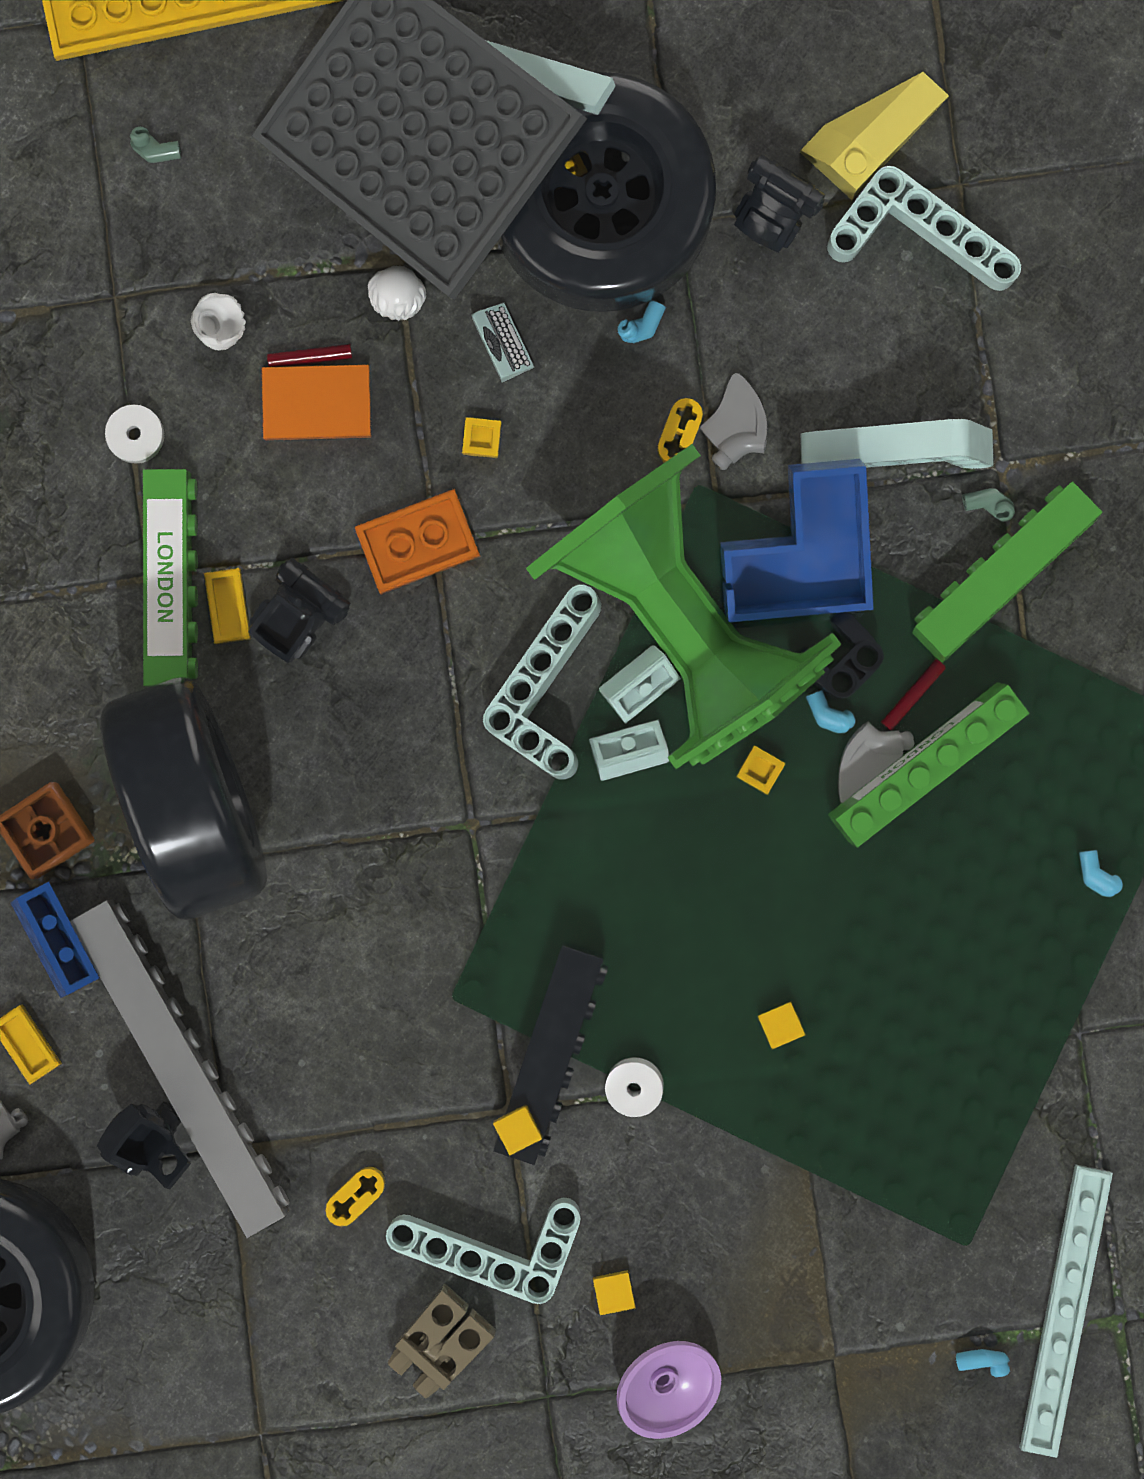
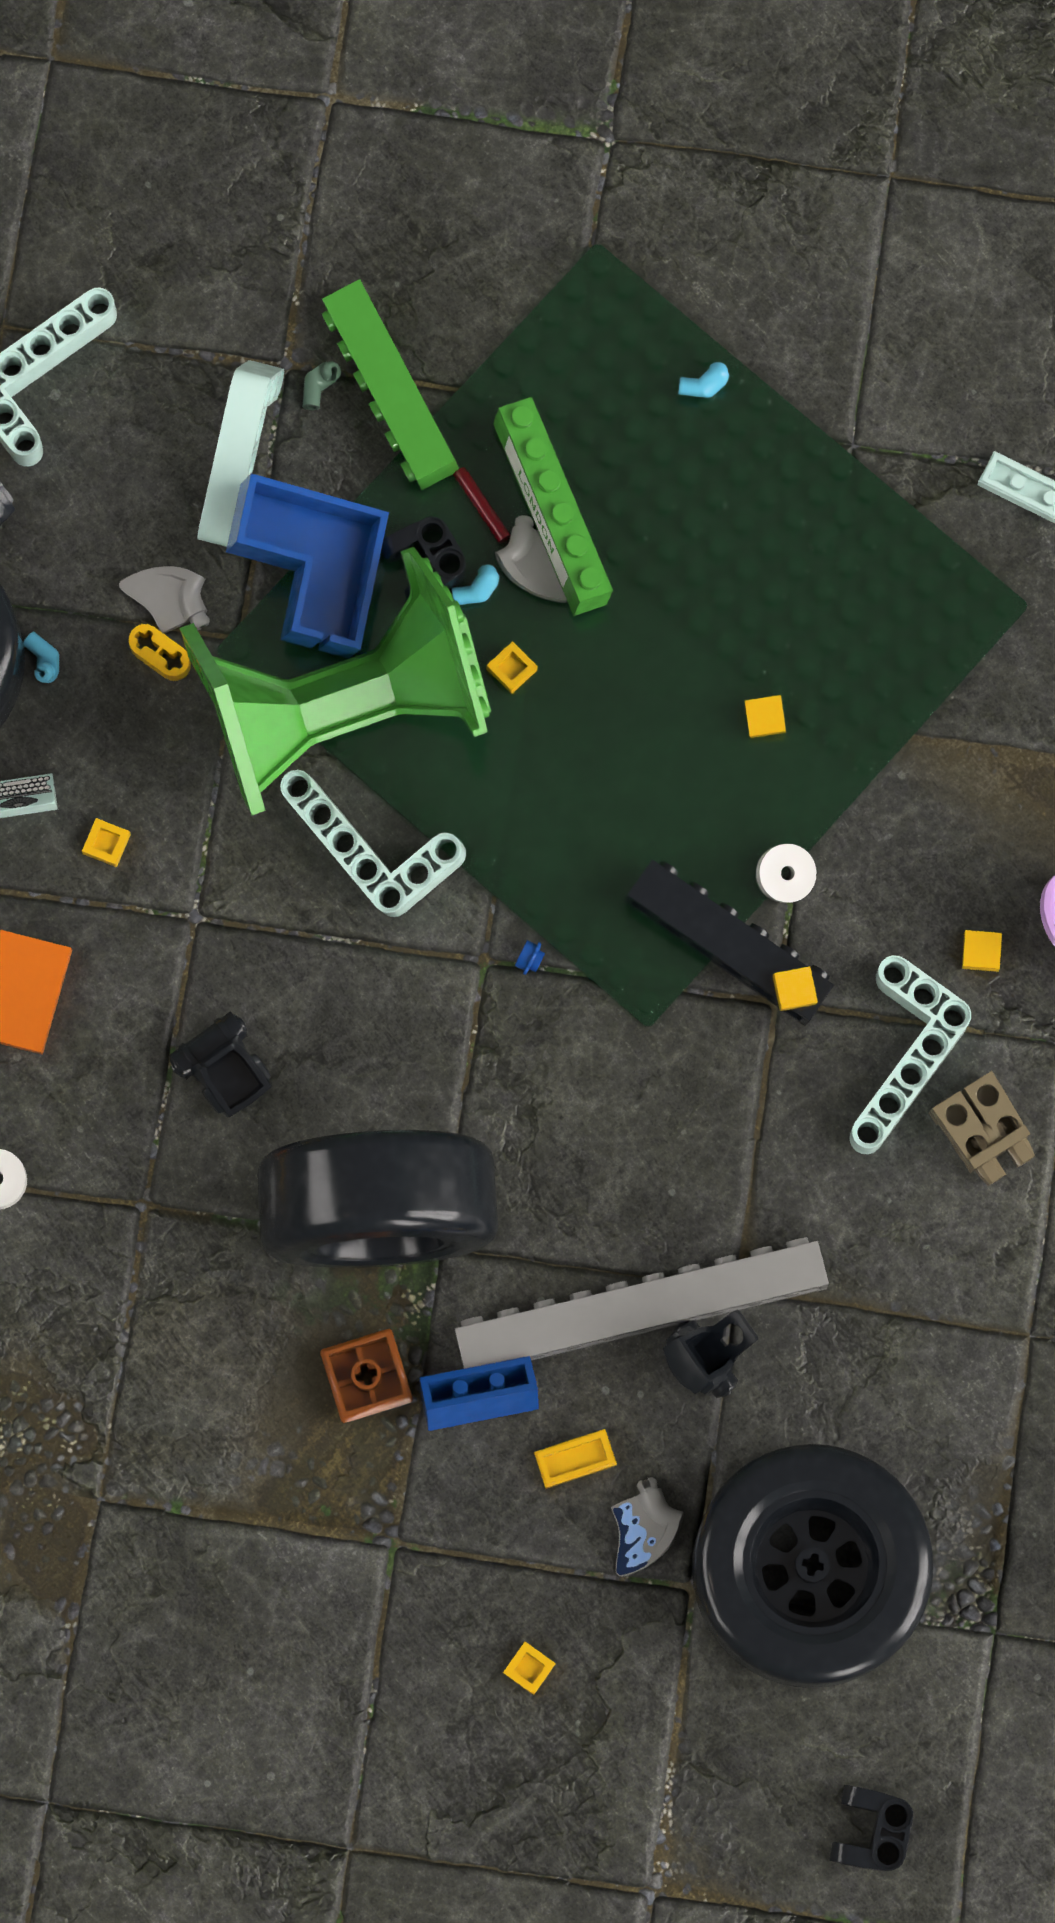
camera: 75 degrees left, 10 degrees down
(168, 575) = (150, 1182): brick -> none
(227, 606) = (196, 1136): yellow tile -> none
(361, 1202) = (810, 1178): yellow beam -> none
(417, 541) = (189, 933): orange tile -> none
(484, 867) = (530, 957): none -> blue plate
(629, 750) = (456, 784): light aqua slope -> none
(639, 683) = (393, 757): light aqua slope -> none

